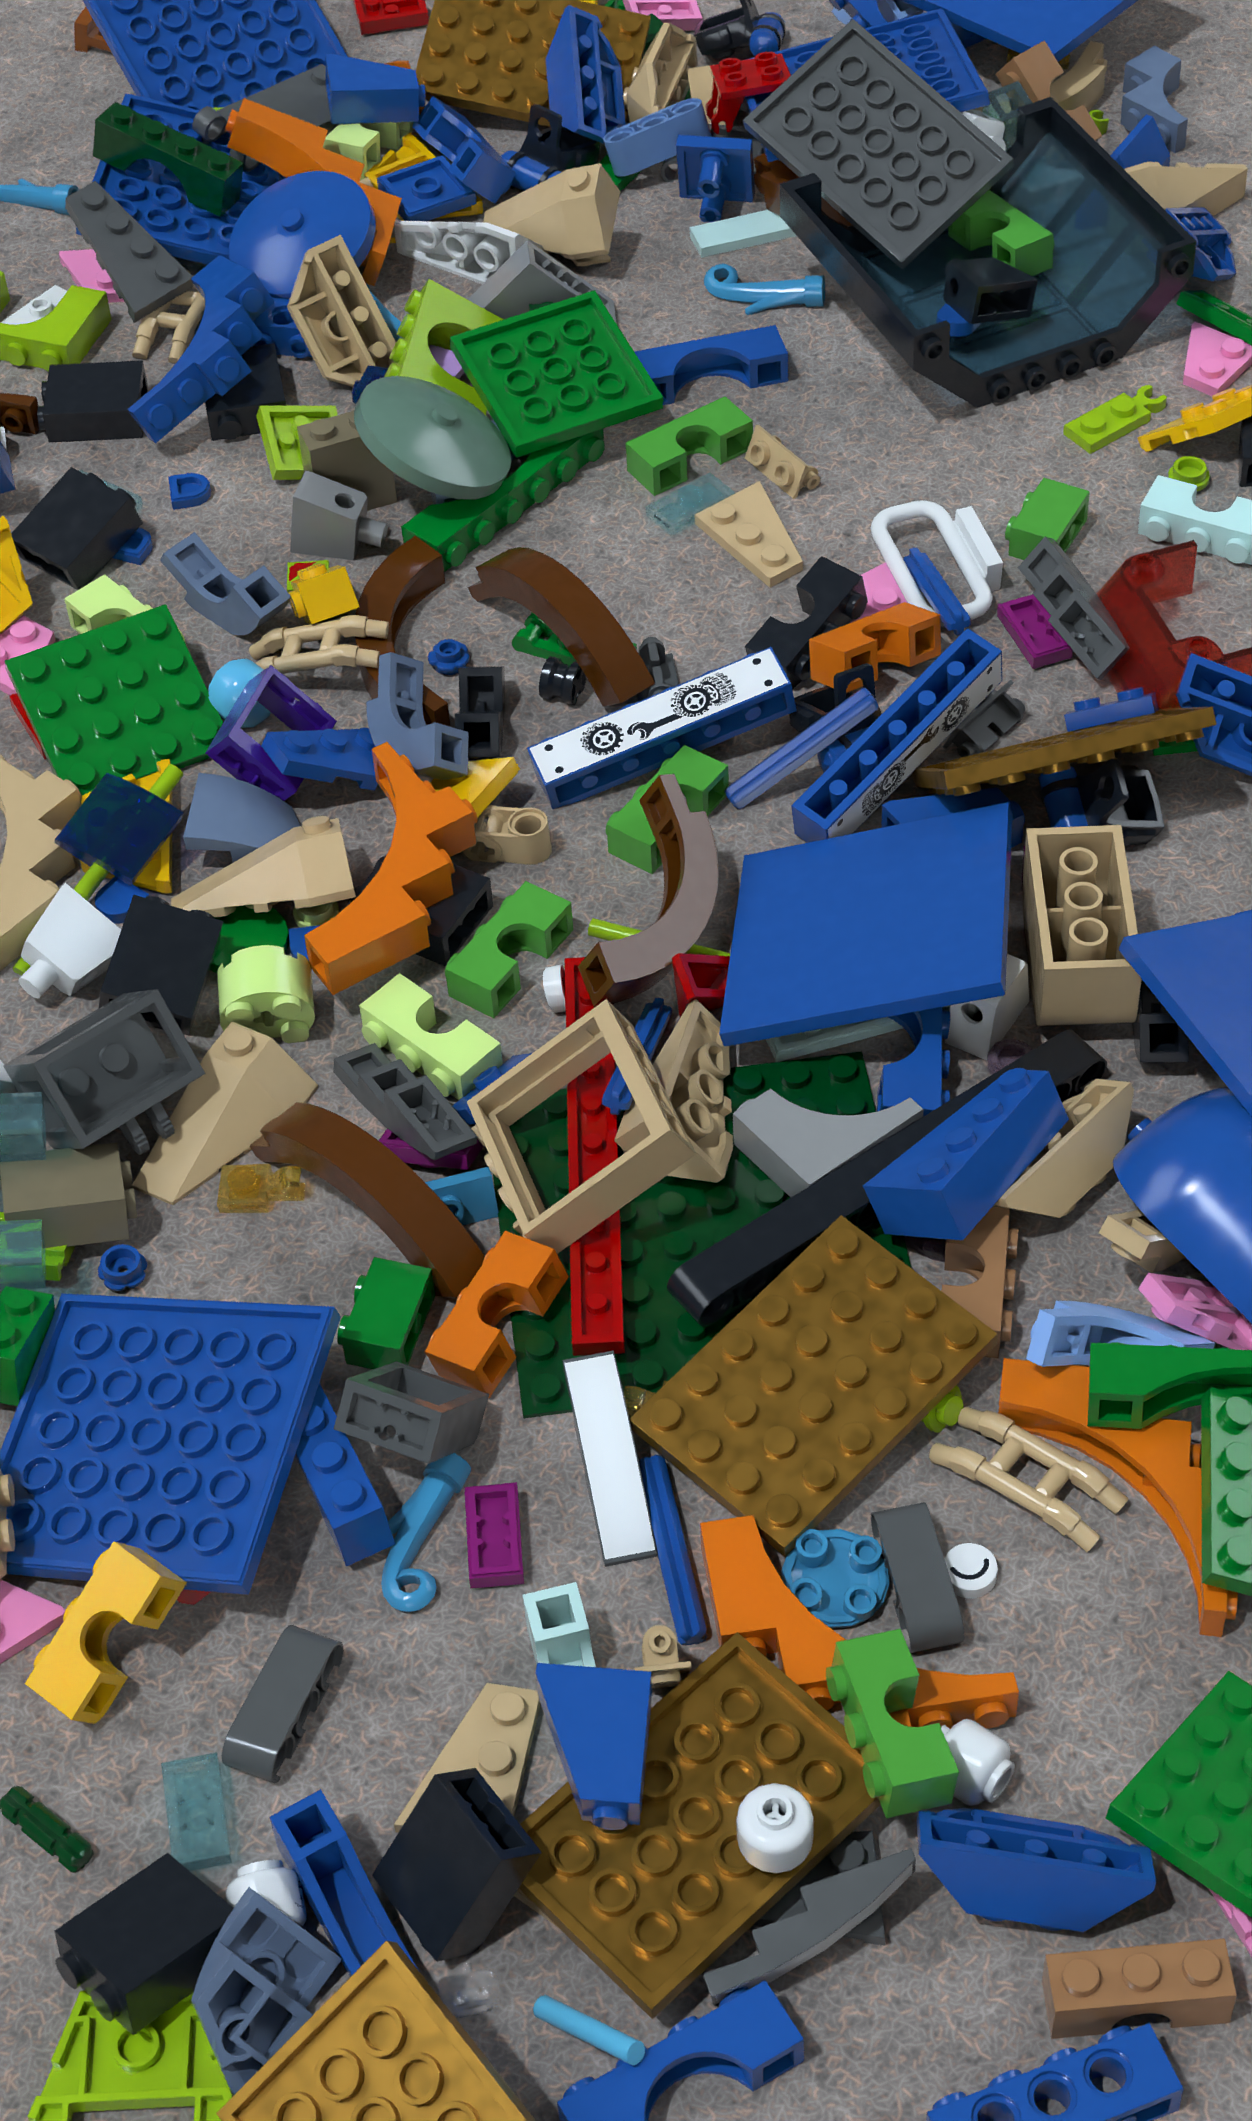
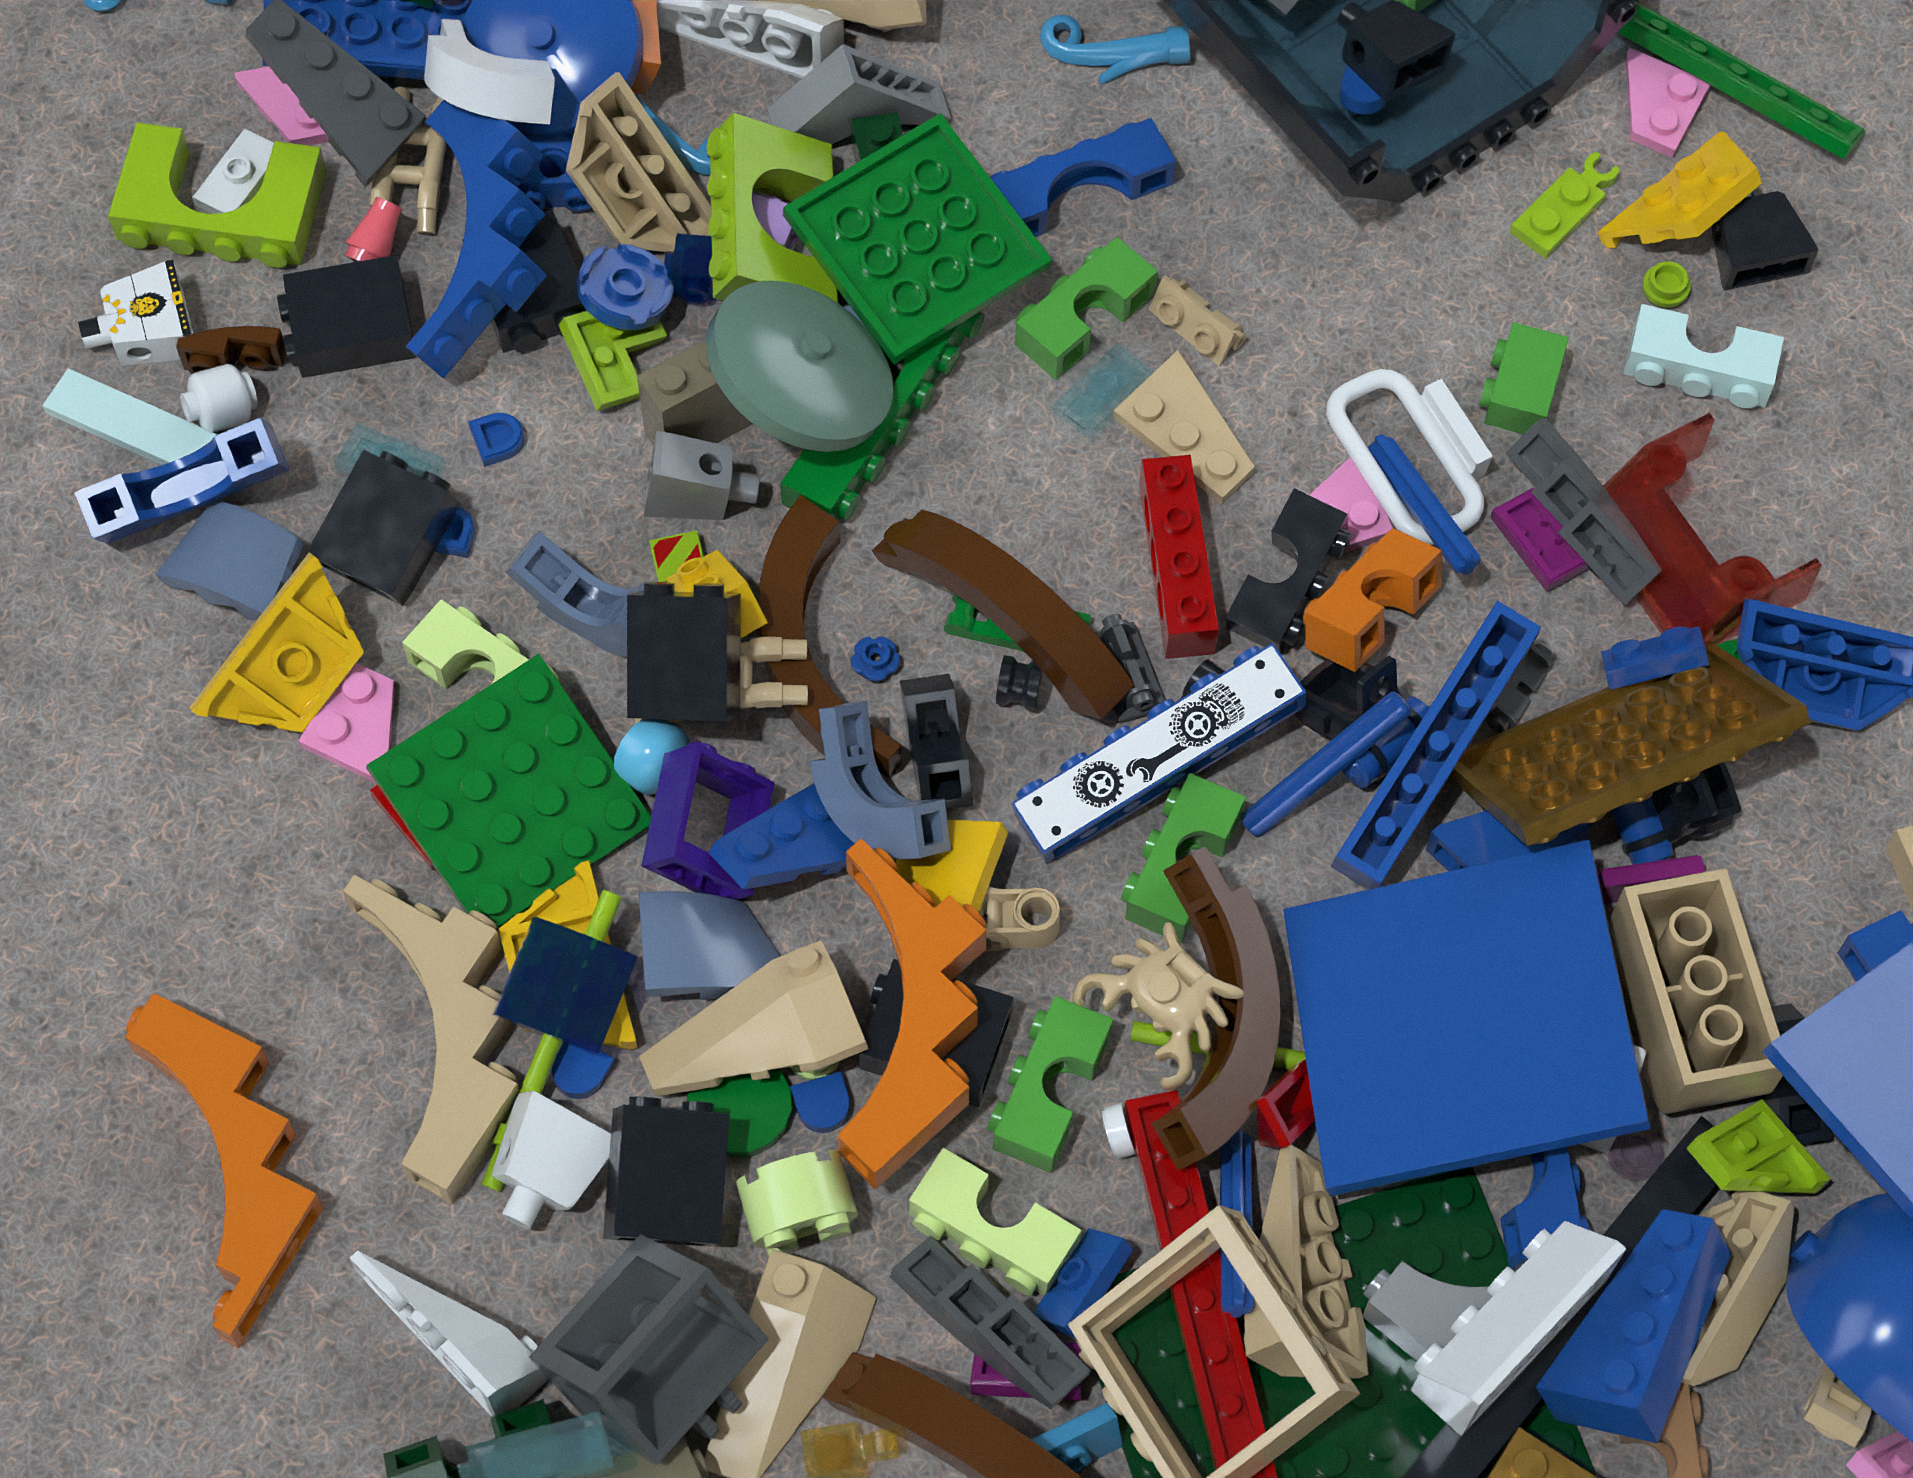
camera: 15 degrees left, 15 degrees up
(134, 346) = (375, 232): none -> coral cone
(243, 243) = (487, 82): none -> white arch
(280, 608) = (683, 653): none -> black brick
(314, 394) = (624, 287): none -> blue tile
(619, 877) = (1171, 992): none -> tan animal
(718, 602) = (1178, 557): none -> red brick
(853, 1132) = (1515, 1323): none -> white slope
(1110, 1051) = (1757, 1155): none -> lime wing

